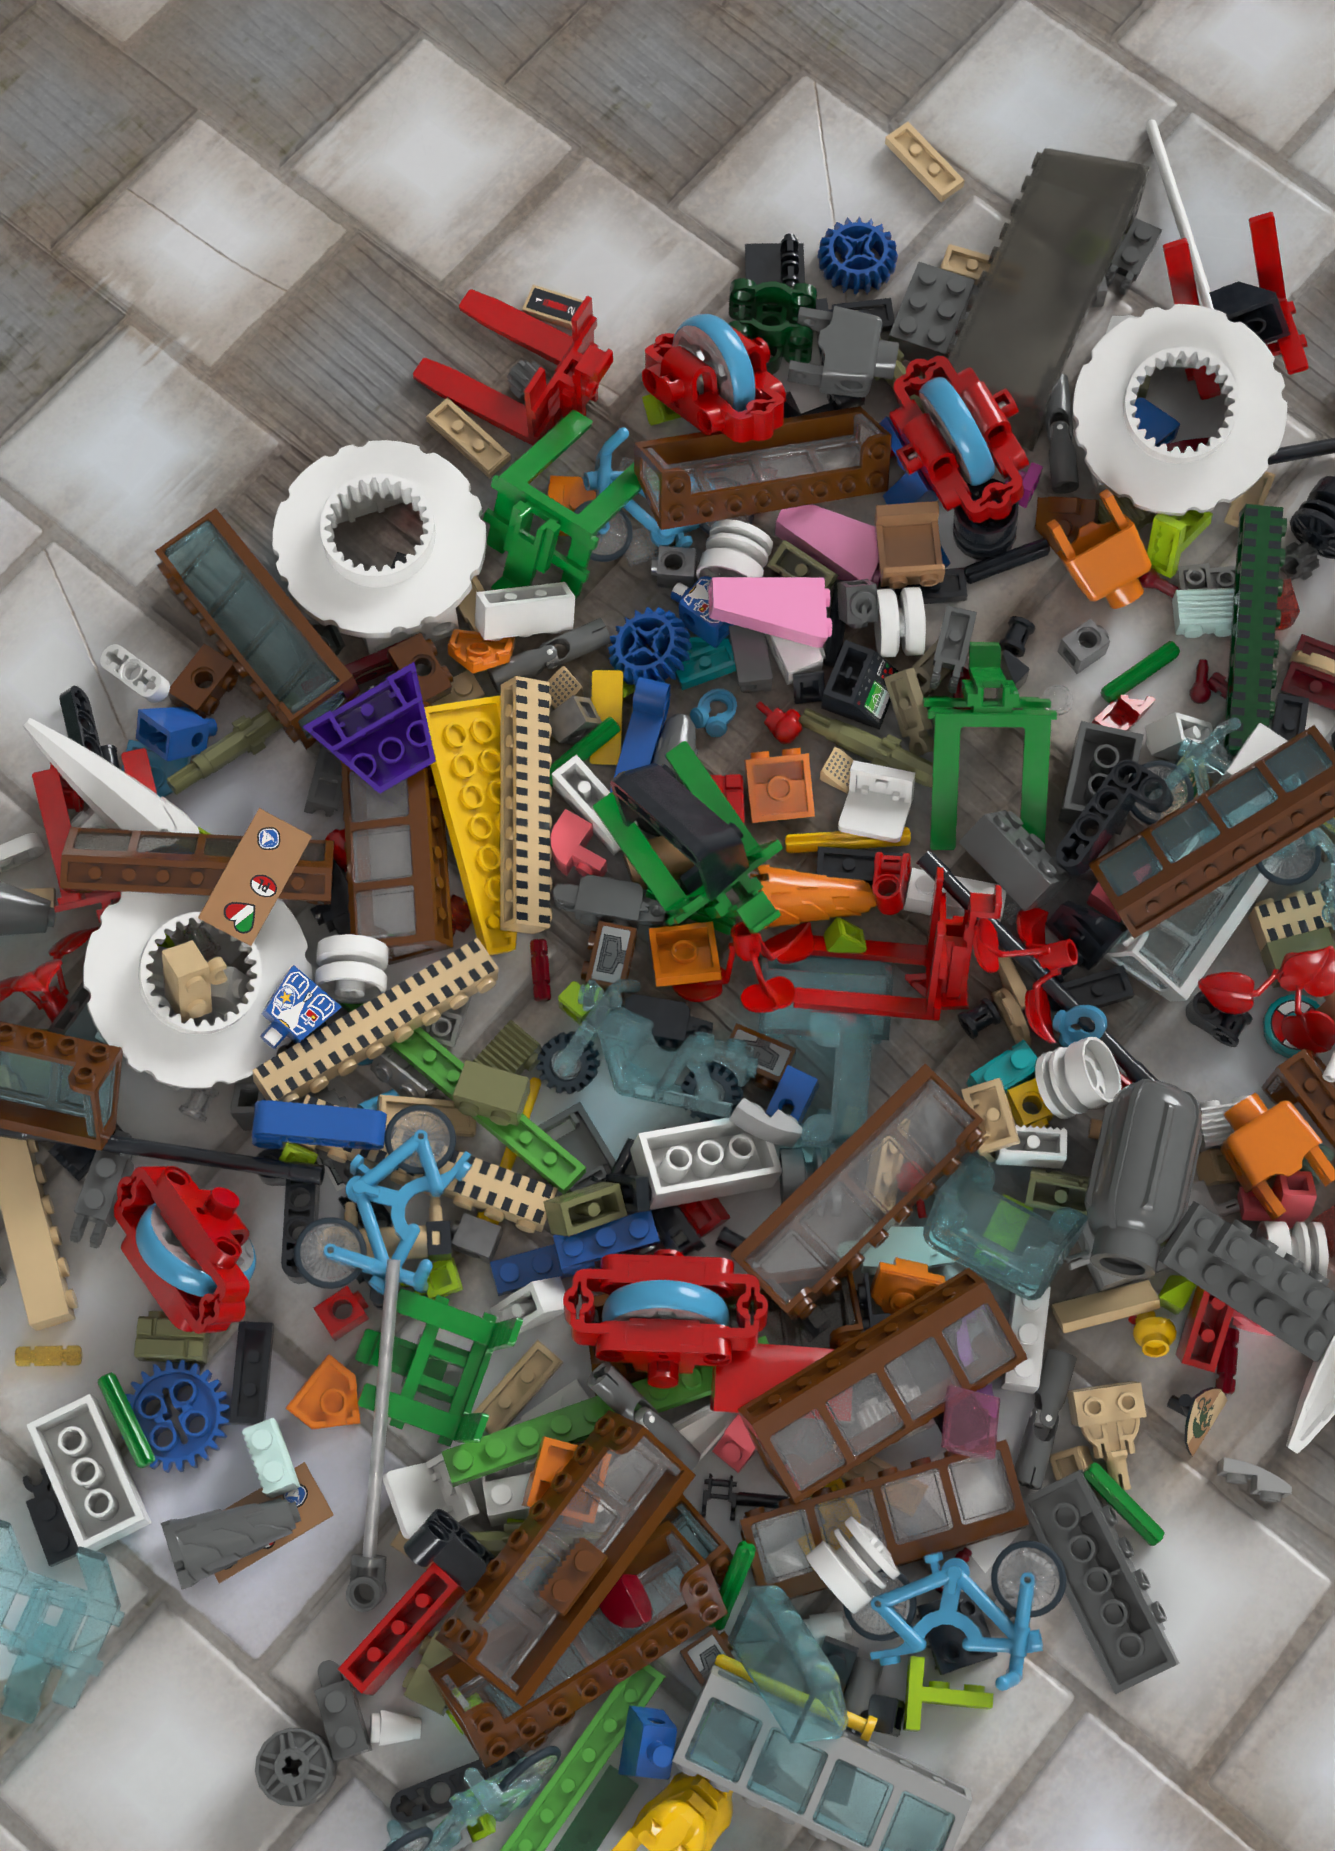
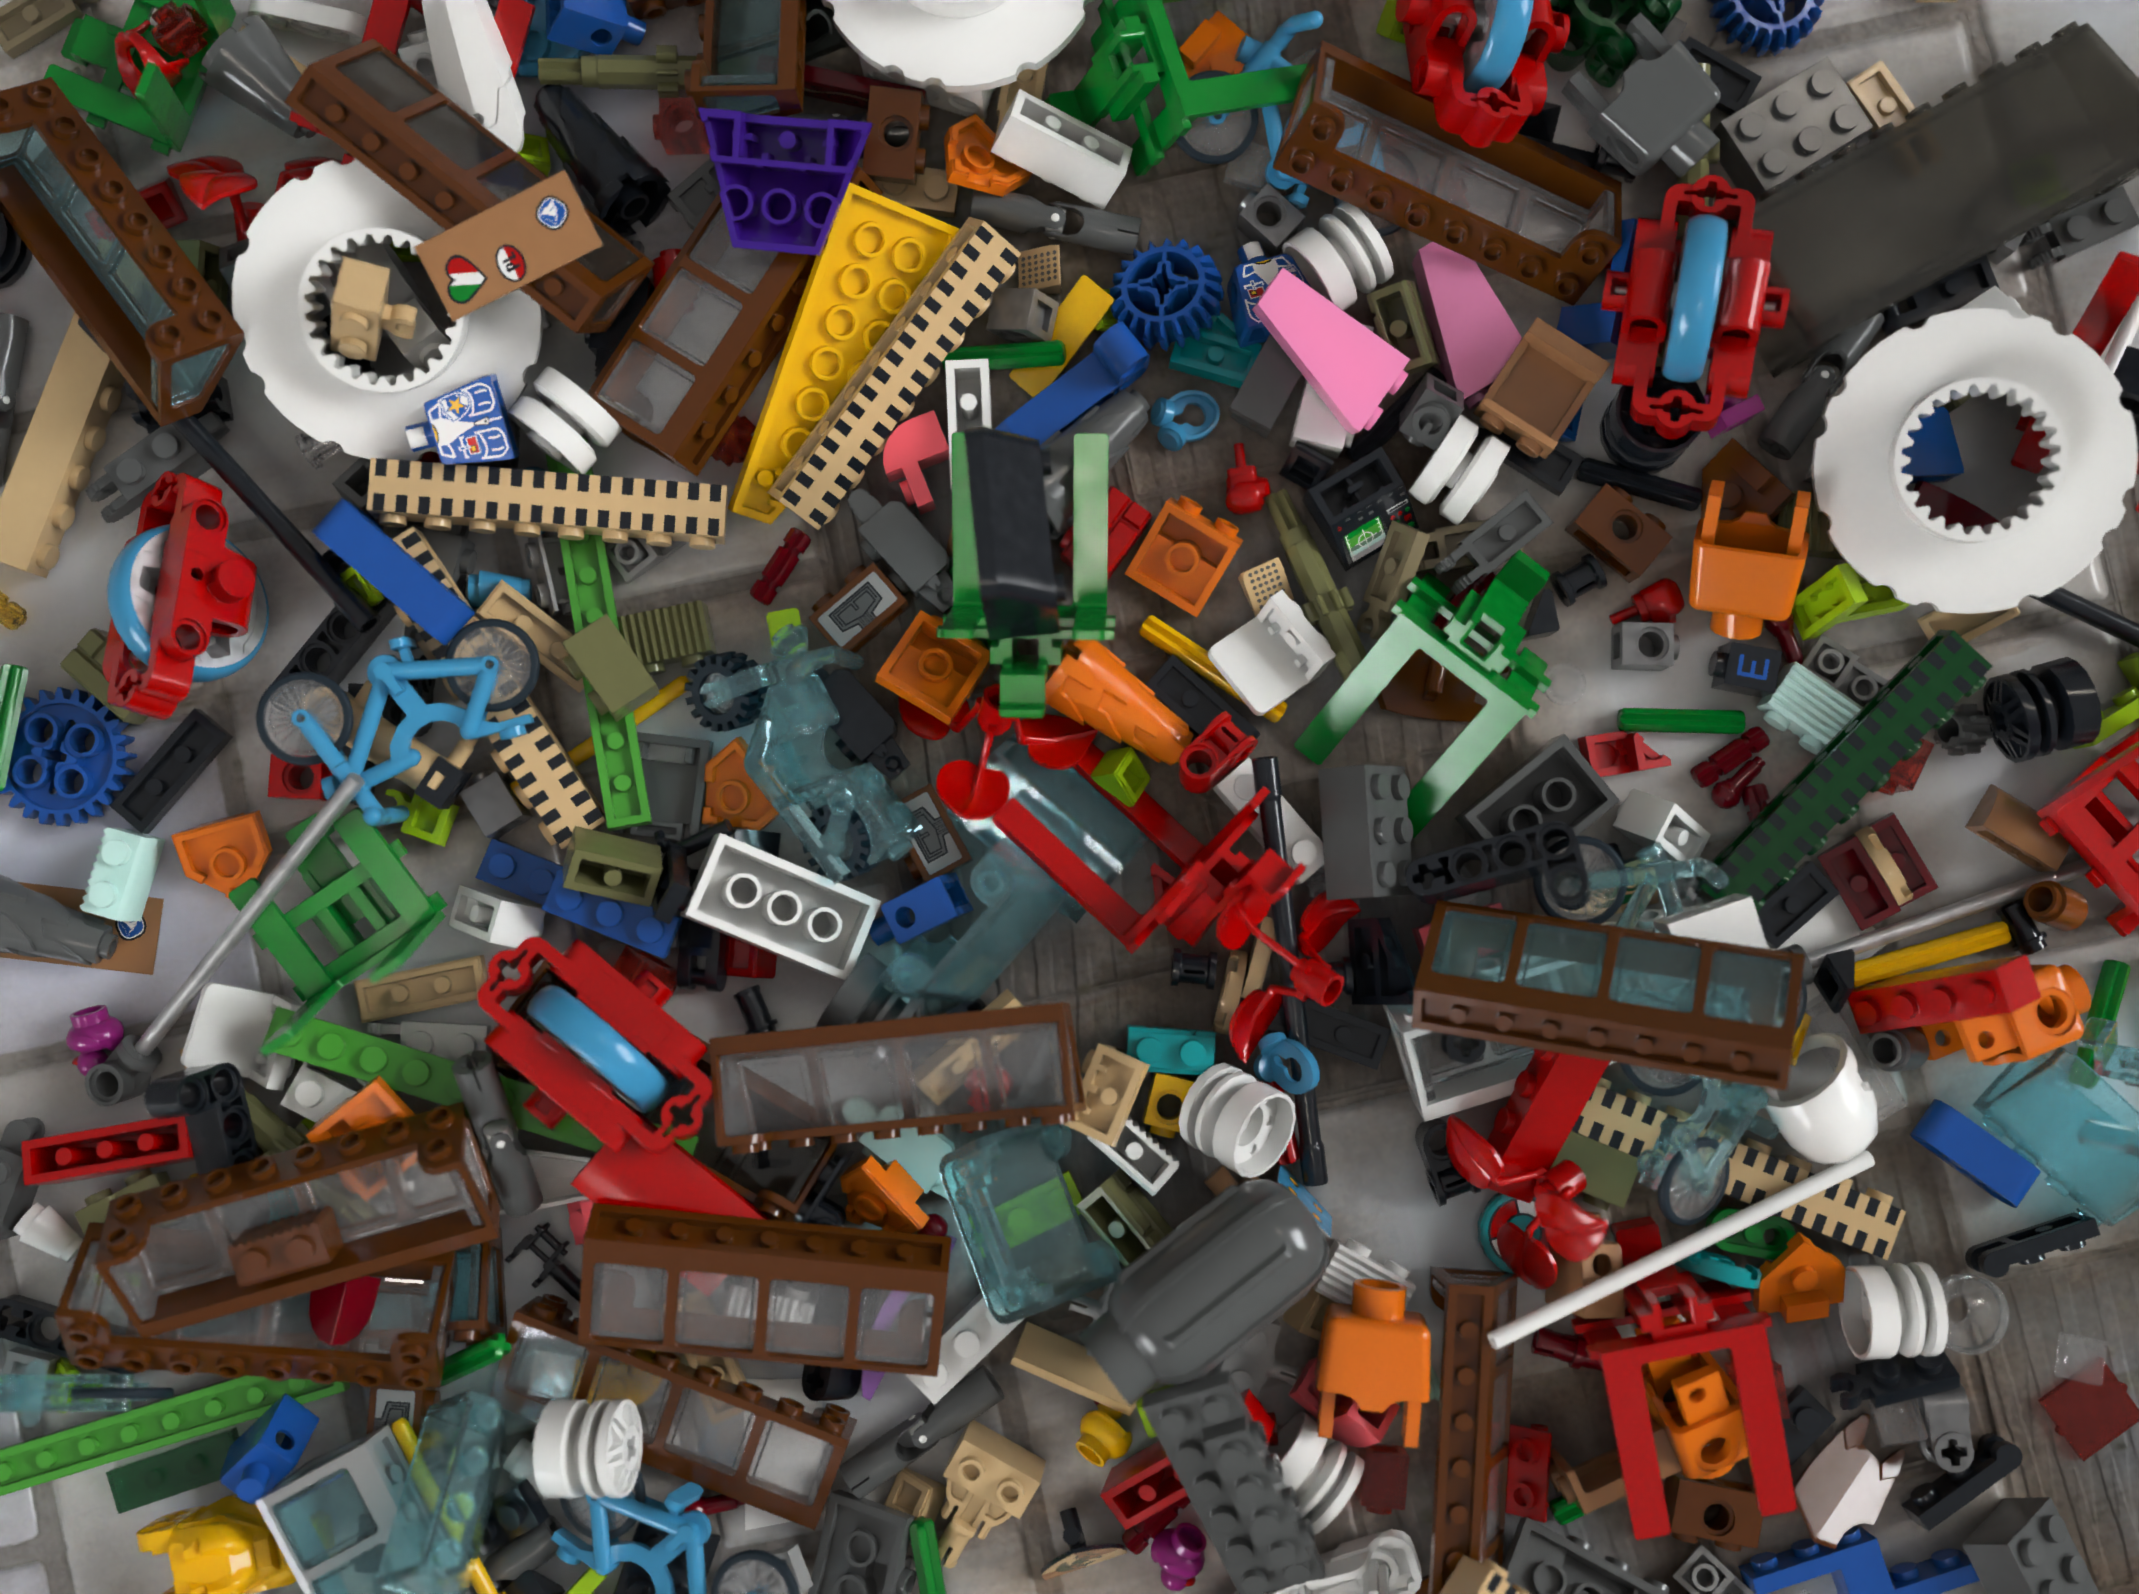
camera: 35 degrees right, 15 degrees up
(235, 807) = (602, 166): none -> black cone
(280, 746) = (671, 113): none -> clear red brick
(325, 1574) = (92, 1032): none -> magenta animal
(621, 1117) = (733, 793): none -> orange plate
(779, 1129) = (875, 935): light grey slope -> none
(970, 1423) = (820, 1400): clear pink piece -> none
(985, 755) = (1429, 691): none -> reddish brown shield
(1004, 604) = (1594, 531): none -> reddish brown brick
(1070, 616) = (1655, 603): none -> red piece
(1090, 334) = (1943, 296): none -> black plate
(1152, 616) = (1745, 669): none -> black brick
(1170, 929) = (1470, 1055): none -> black bush
(1184, 671) = (1730, 757): none -> dark red axle
(1247, 934) = (1541, 1115): none -> red brick
(1259, 1369) = (1179, 1555): none -> magenta animal

